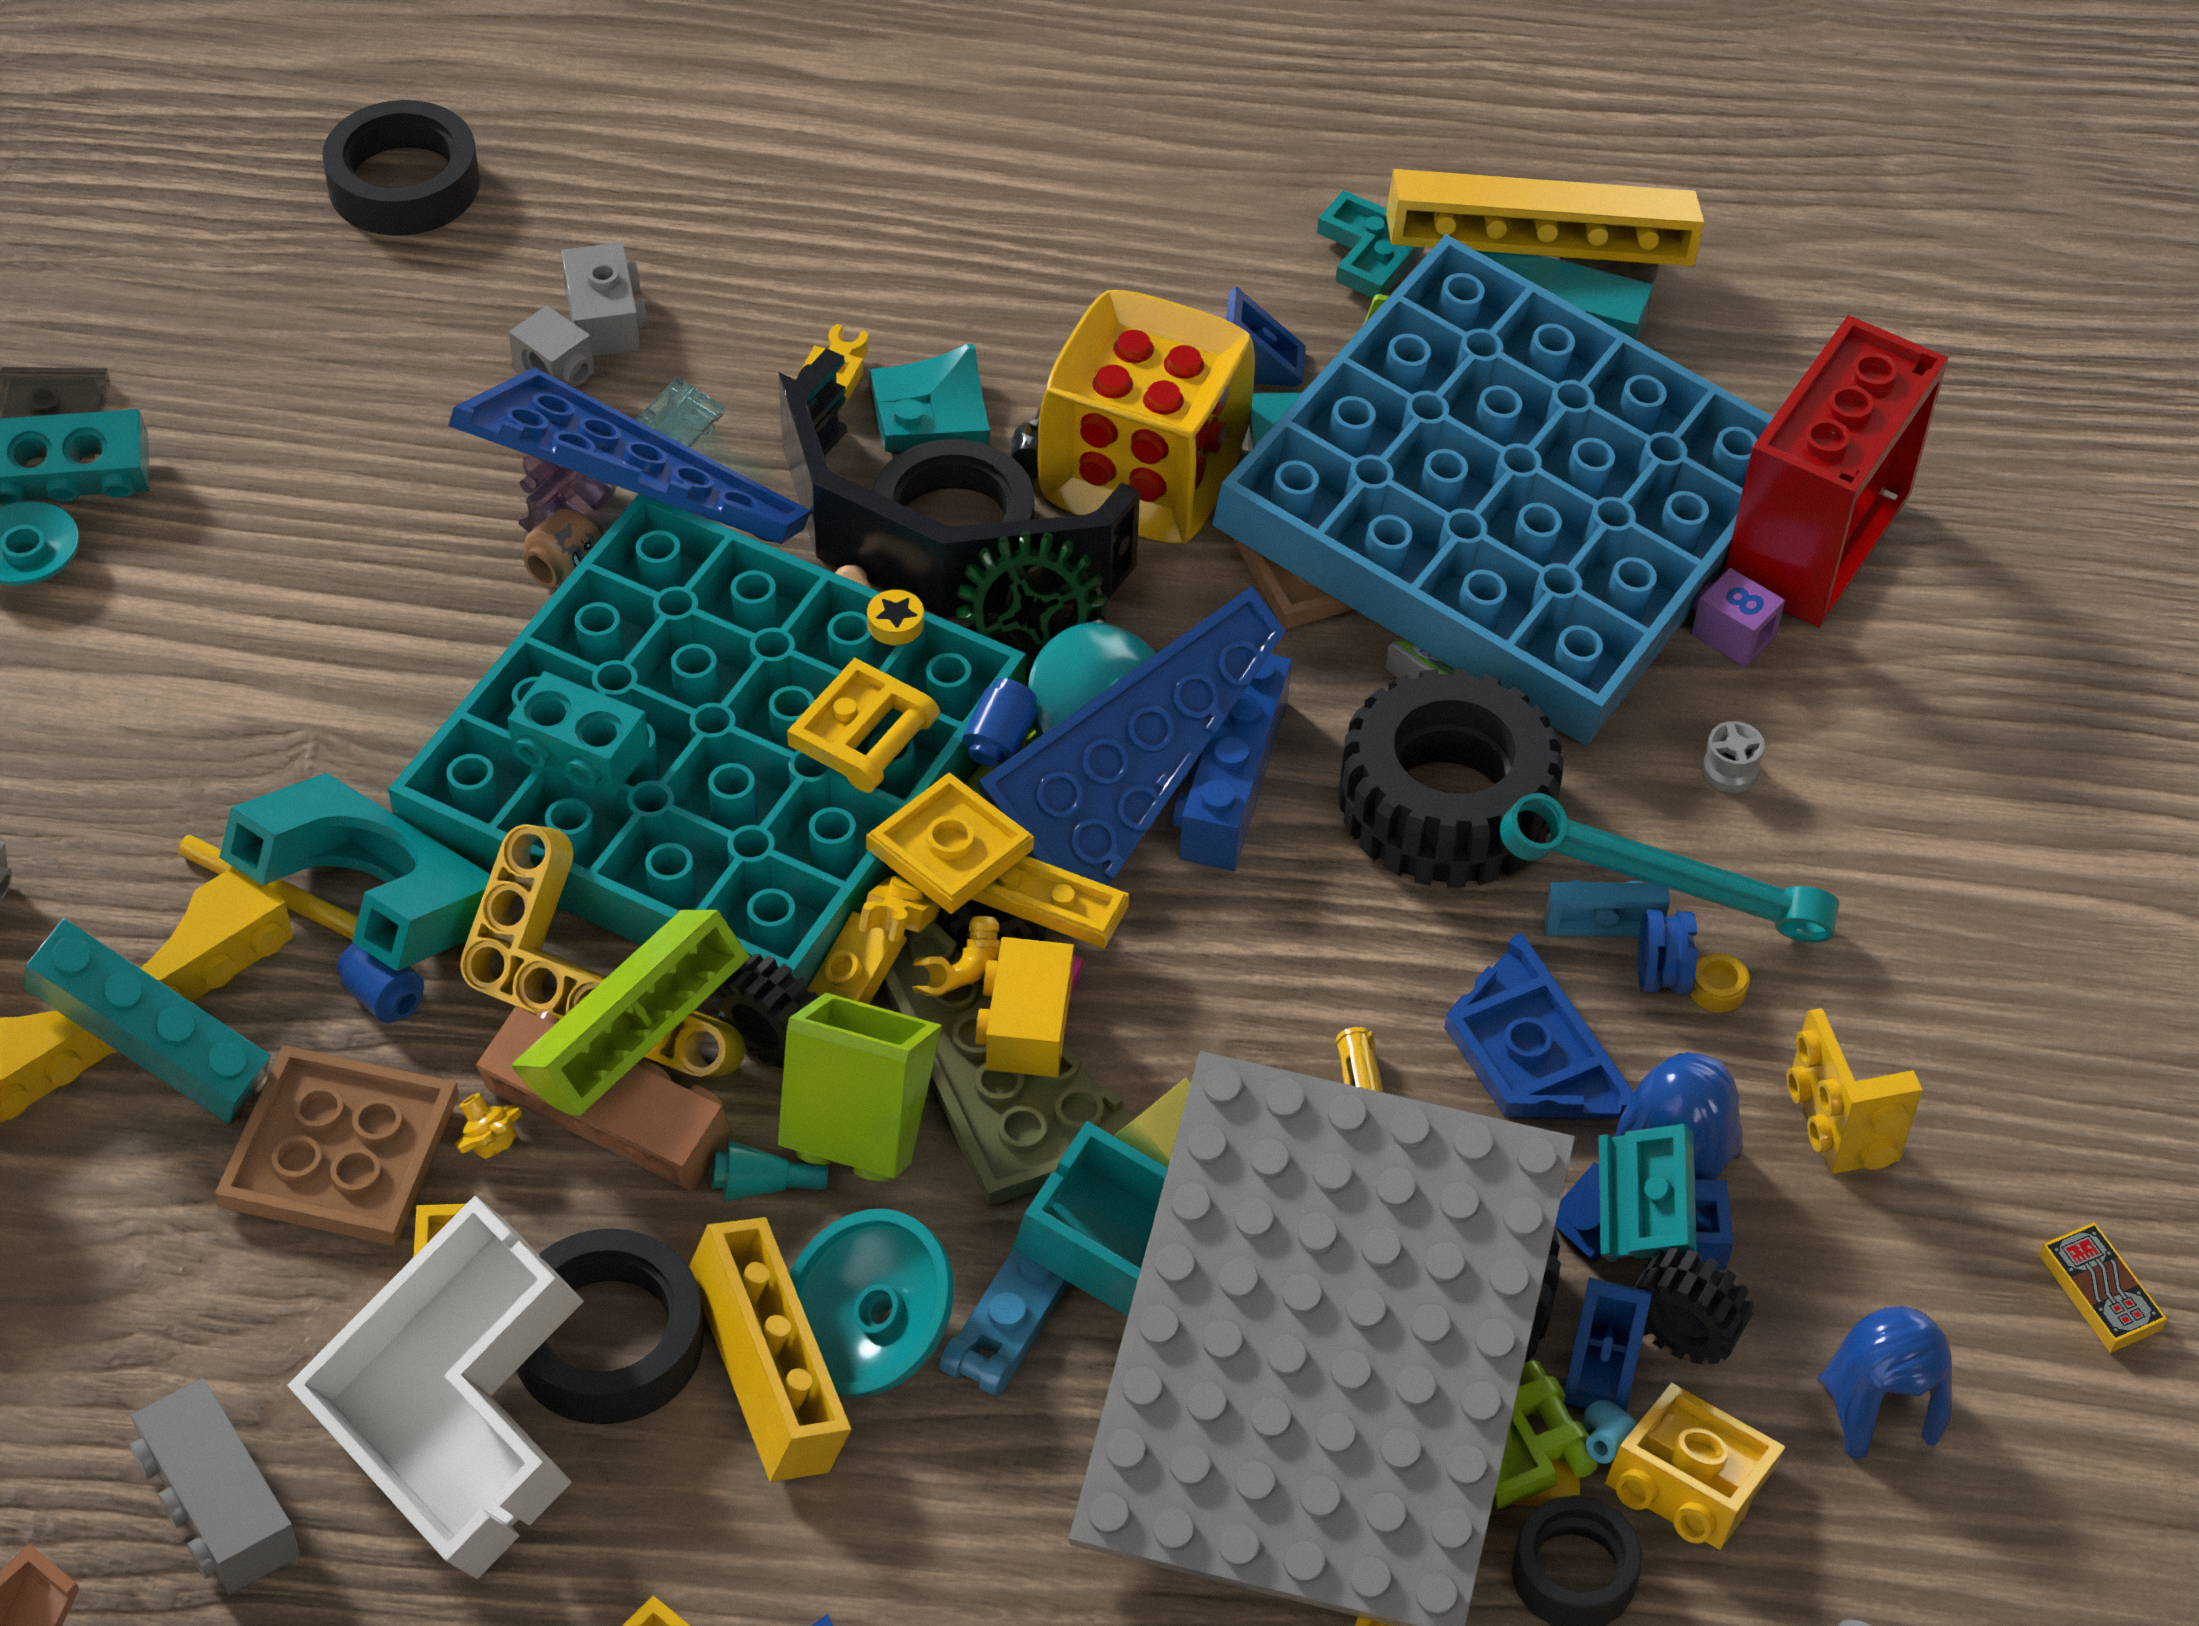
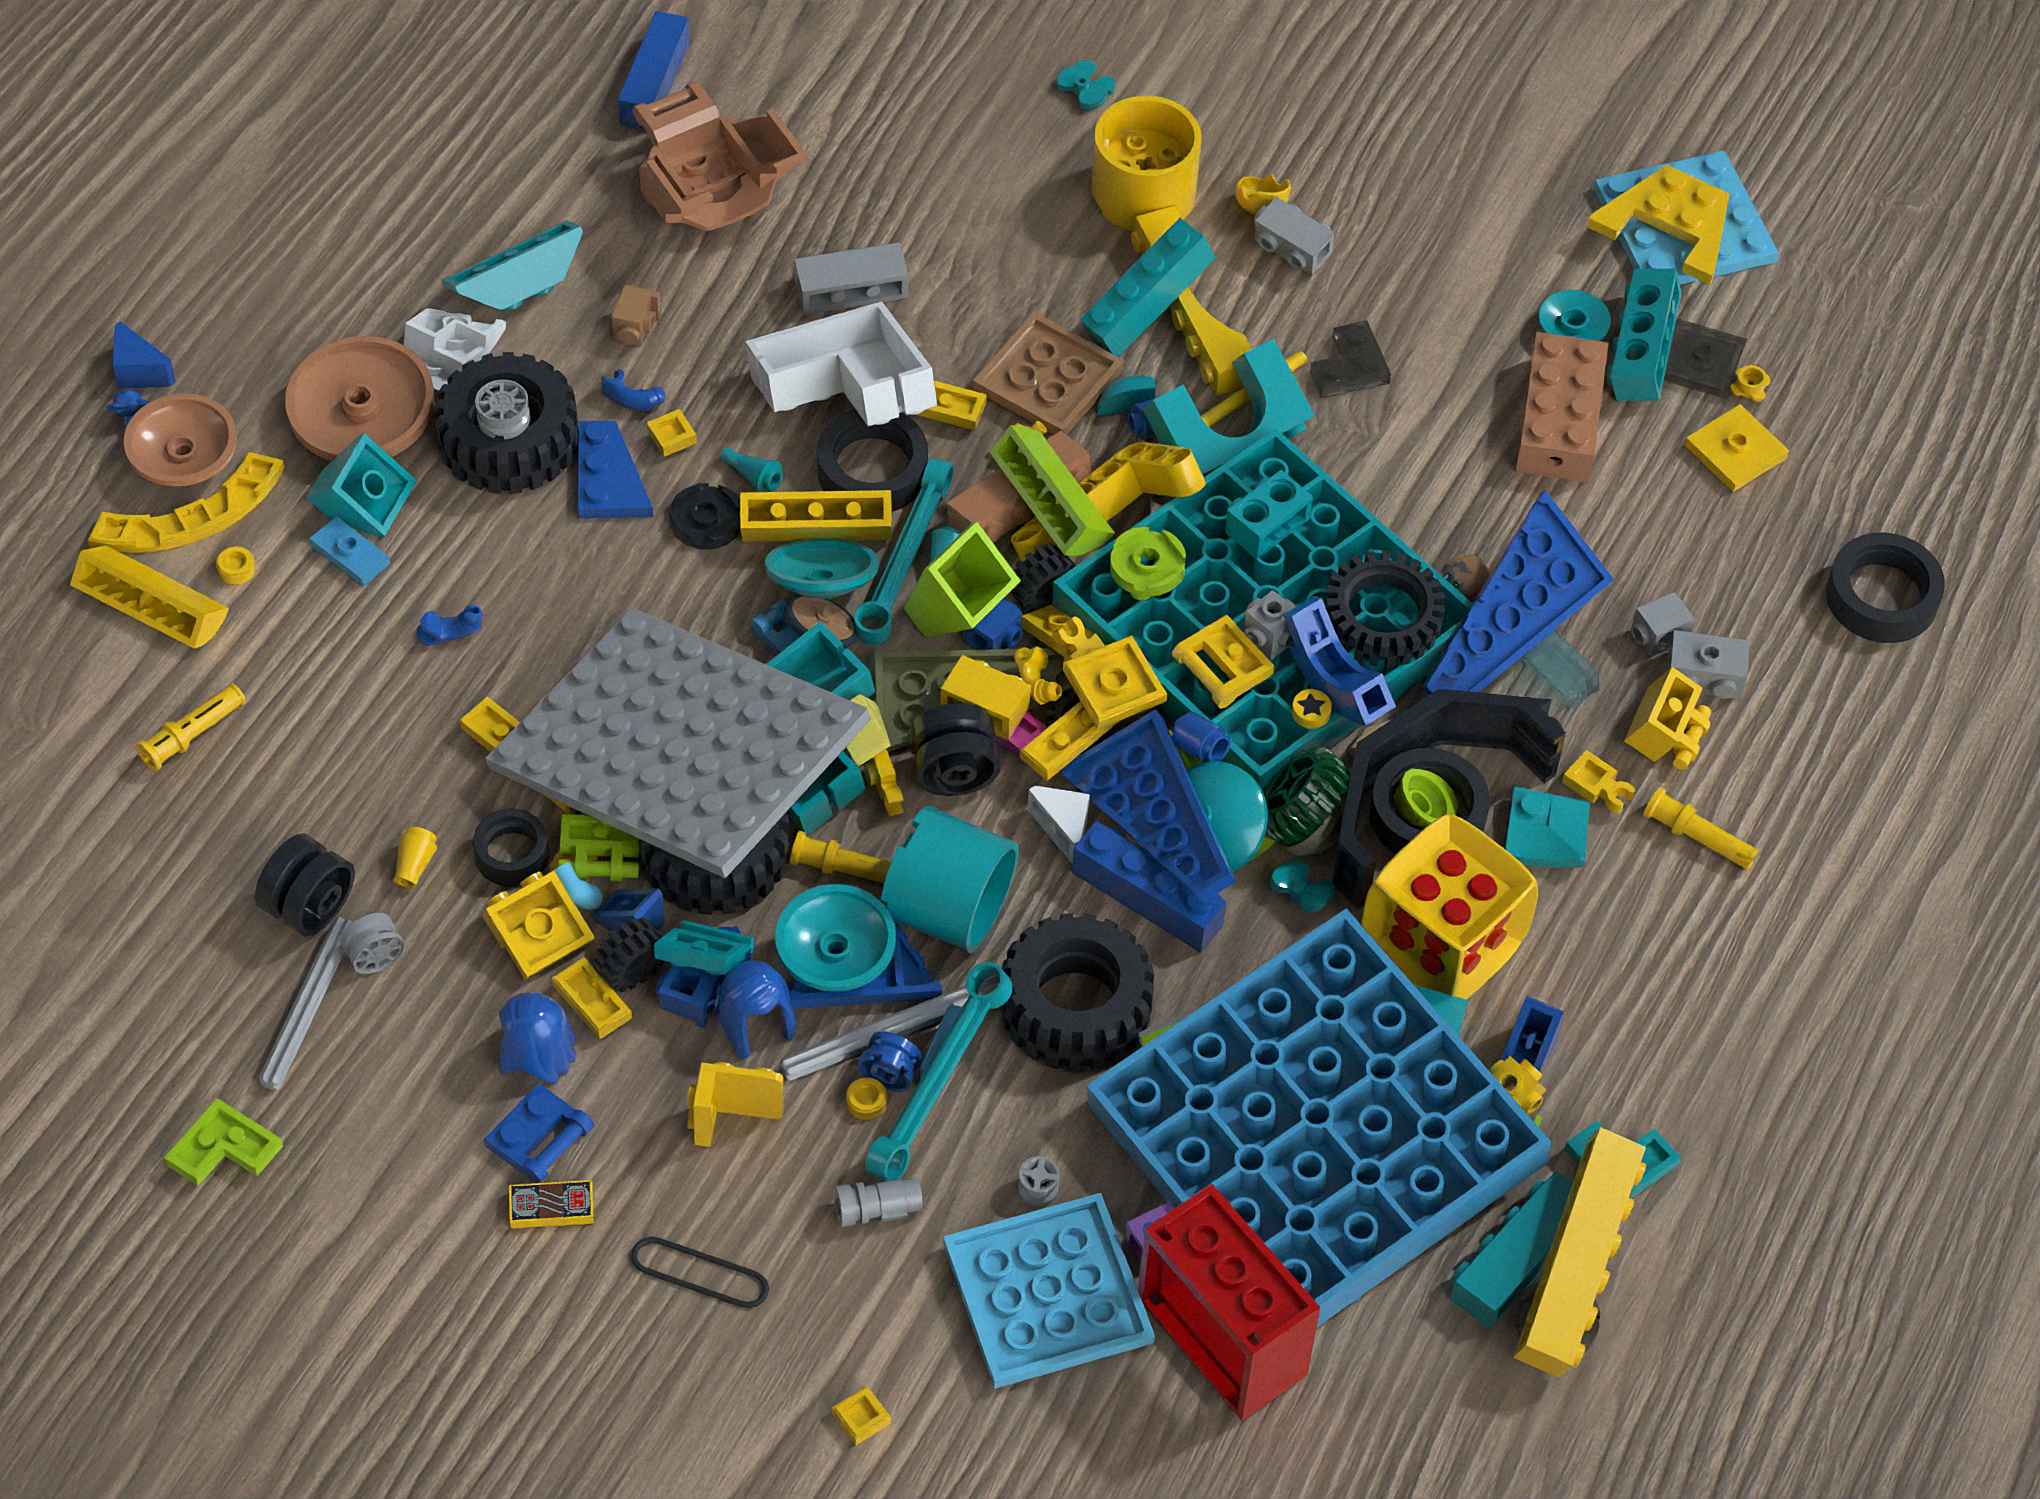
camera: 110 degrees right, 5 degrees up
(81, 349) = (1750, 383): none -> yellow plate
(175, 771) = (1358, 365): none -> clear smoke plate
(200, 520) = (1562, 407): none -> nougat brick
(203, 348) = (1736, 448): none -> yellow plate
(338, 1023) = (1124, 393): none -> teal brick
(690, 1481) = (761, 473): none -> teal cone
(695, 621) = (1390, 573): none -> black tyre
(711, 314) = (1665, 715): none -> yellow brick
(722, 883) = (1147, 580): none -> lime plate
(783, 675) = (1267, 625): none -> light grey brick
(788, 1223) = (934, 486): none -> teal piece
(803, 1538) = (705, 516): none -> black tile
(837, 591) = (1353, 690): none -> blue arch
(856, 279) = (1685, 821): none -> yellow pin
(960, 506) = (1424, 798): none -> lime piece
(985, 1277) = (806, 612): none -> medium nougat wheel
(1139, 1016) = (954, 749): none -> black wheel
(1146, 603) = (1291, 879): none -> teal piece
(1172, 879) = (1060, 815): none -> white slope
(1331, 330) = (1520, 1082): none -> yellow brick
(1377, 934) = (950, 879): none -> teal brick
(1548, 1016) = (831, 920): none -> teal dish
(1588, 975) = (858, 1039): none -> light grey axle
(1766, 1354) = (591, 998): none -> yellow plate
(1864, 906) = (884, 1200): none -> light grey axle
(1873, 707) = (1048, 1290): none -> medium azure plate
(2006, 1361) = (530, 1125): none -> blue plate
(2102, 1081) = (731, 1300): none -> black piece
(2153, 847) = (861, 1415): none -> yellow tile

